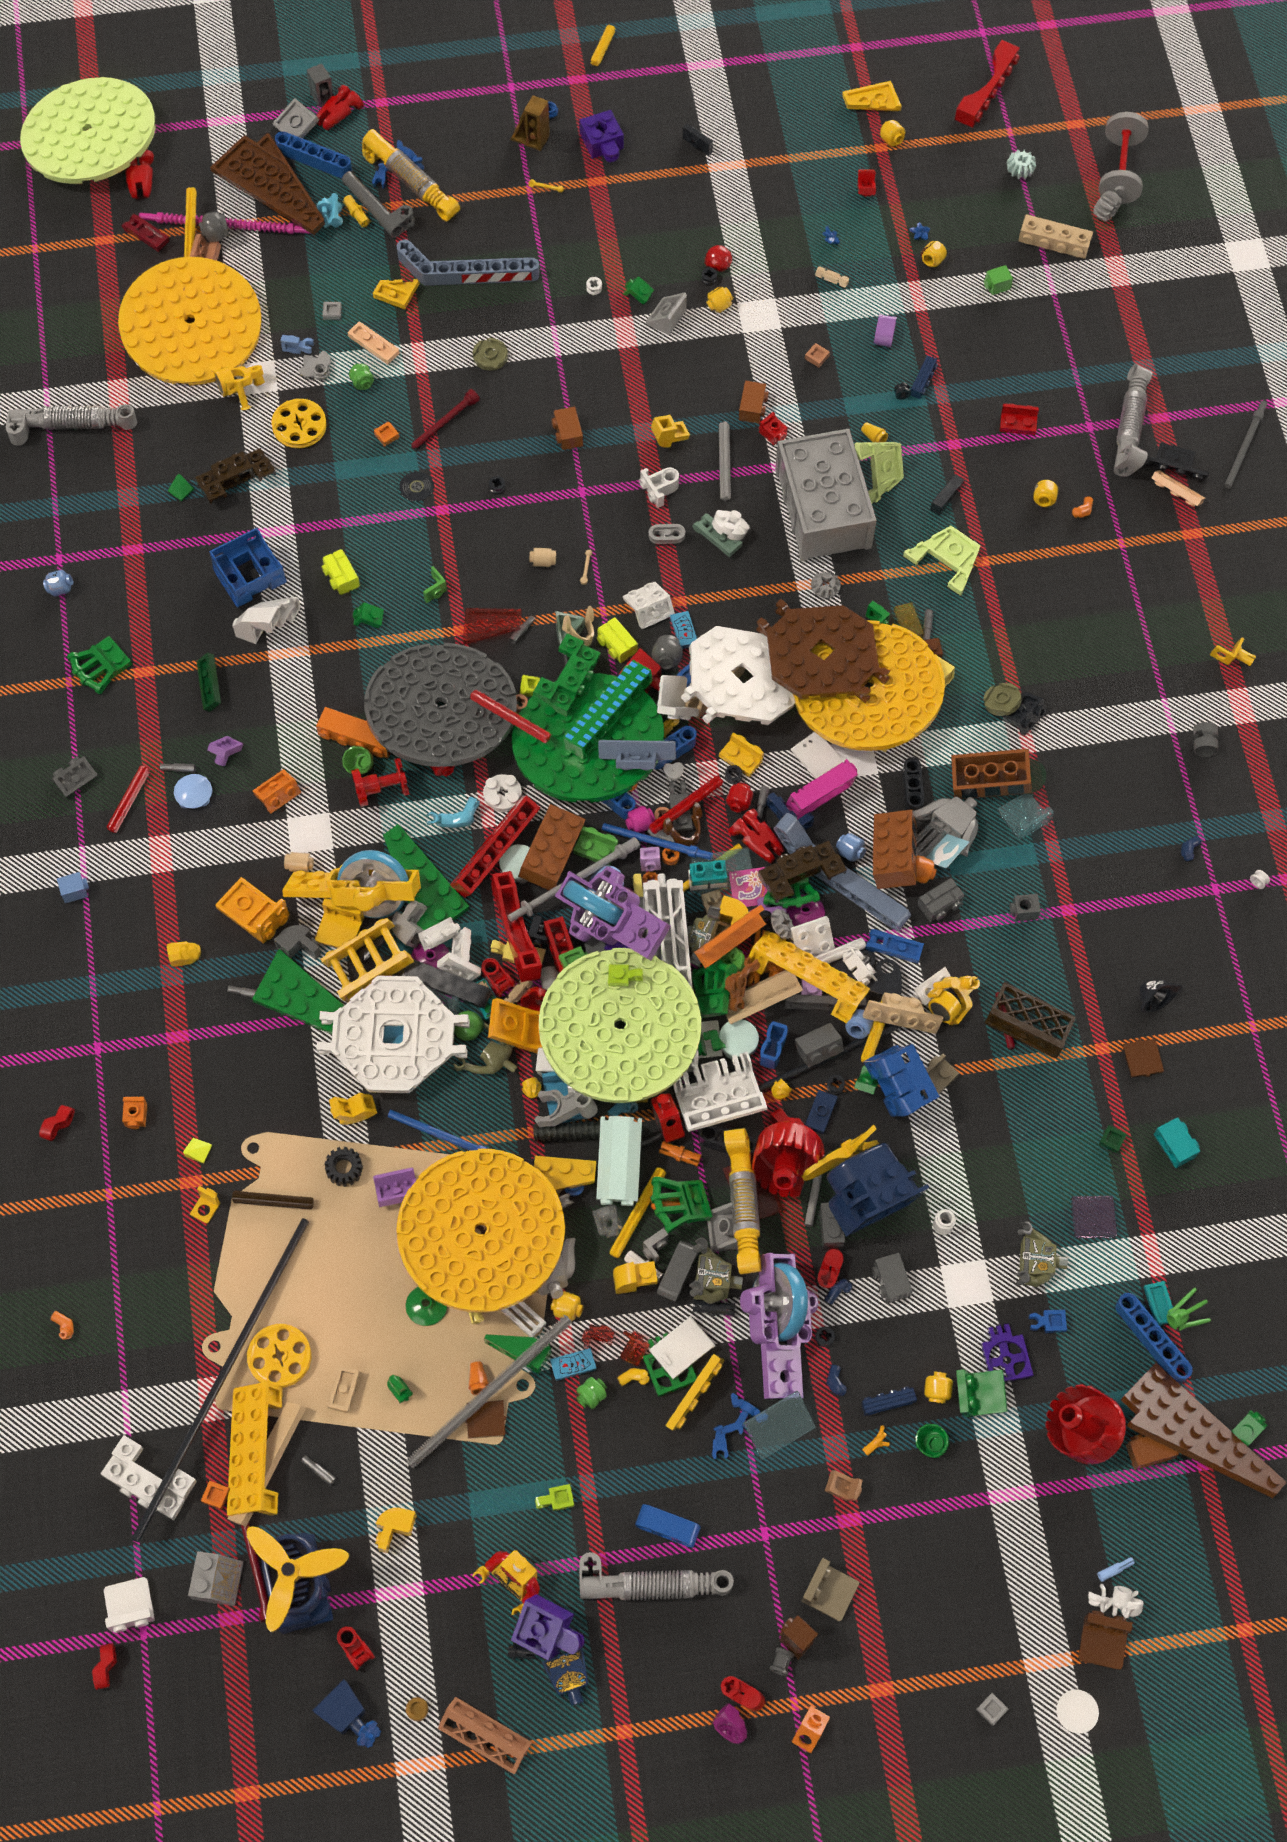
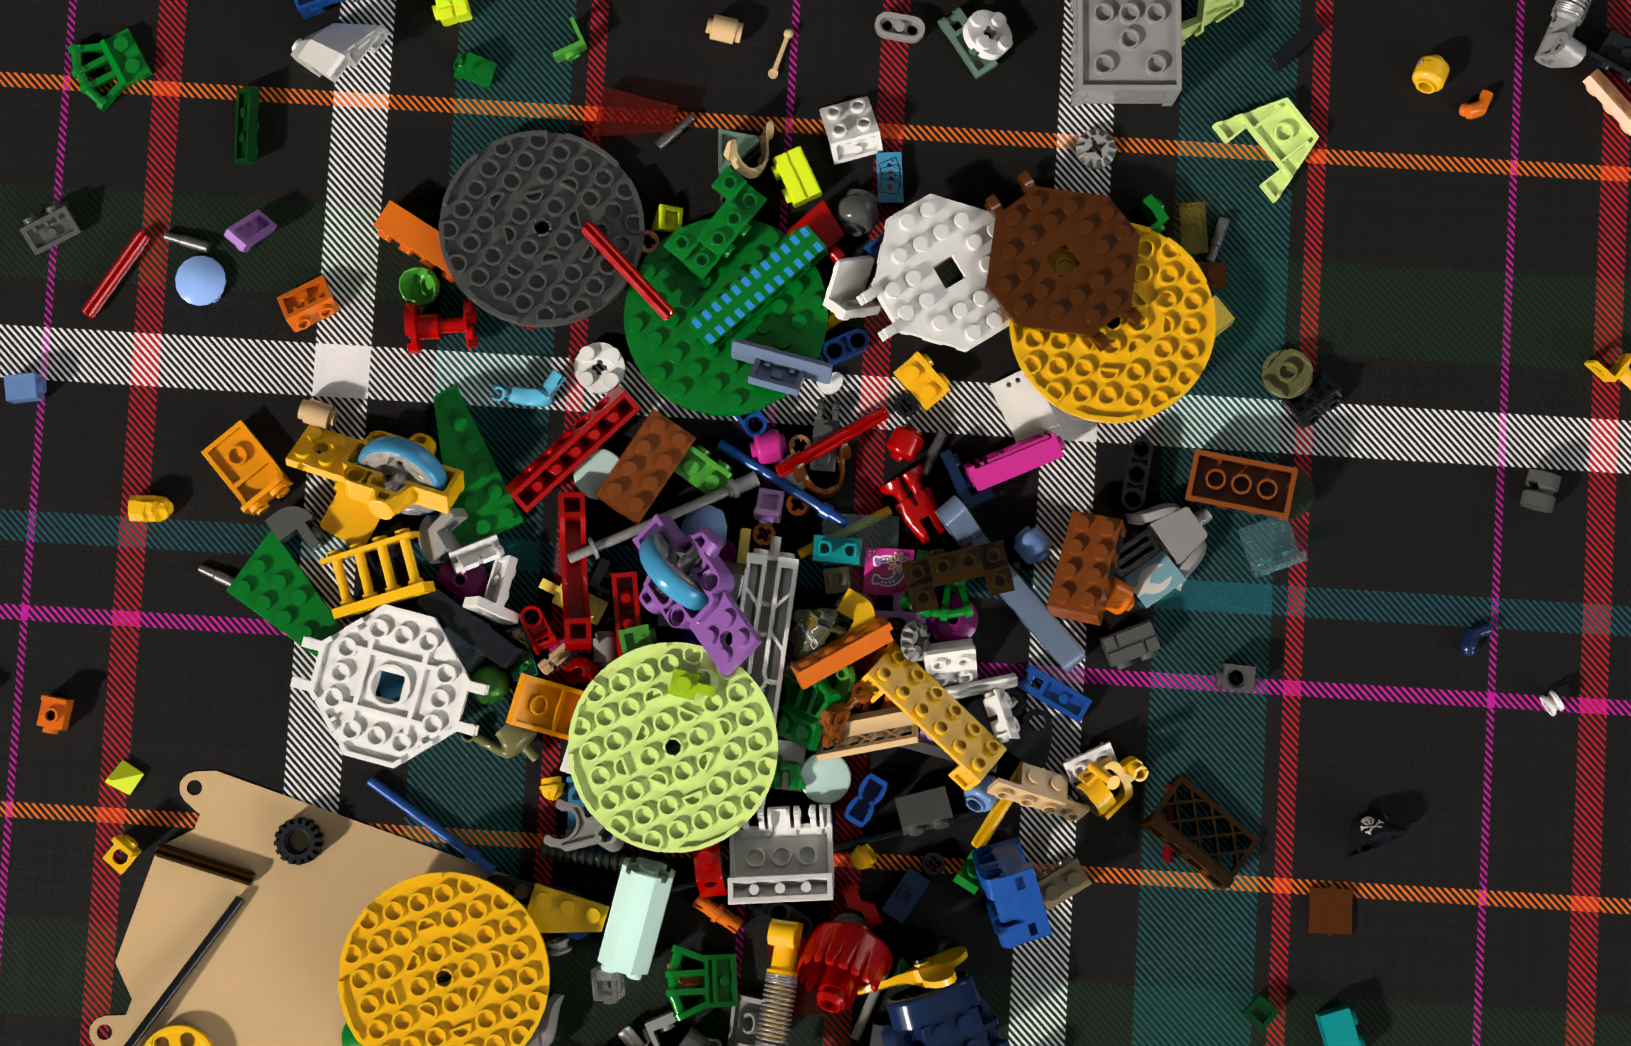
camera: 15 degrees right, 20 degrees up
(353, 1109) = (322, 769): yellow brick -> none
(393, 1186) = (356, 883): medium lavender bracket -> none
(635, 1216) = (641, 986): yellow axle -> none

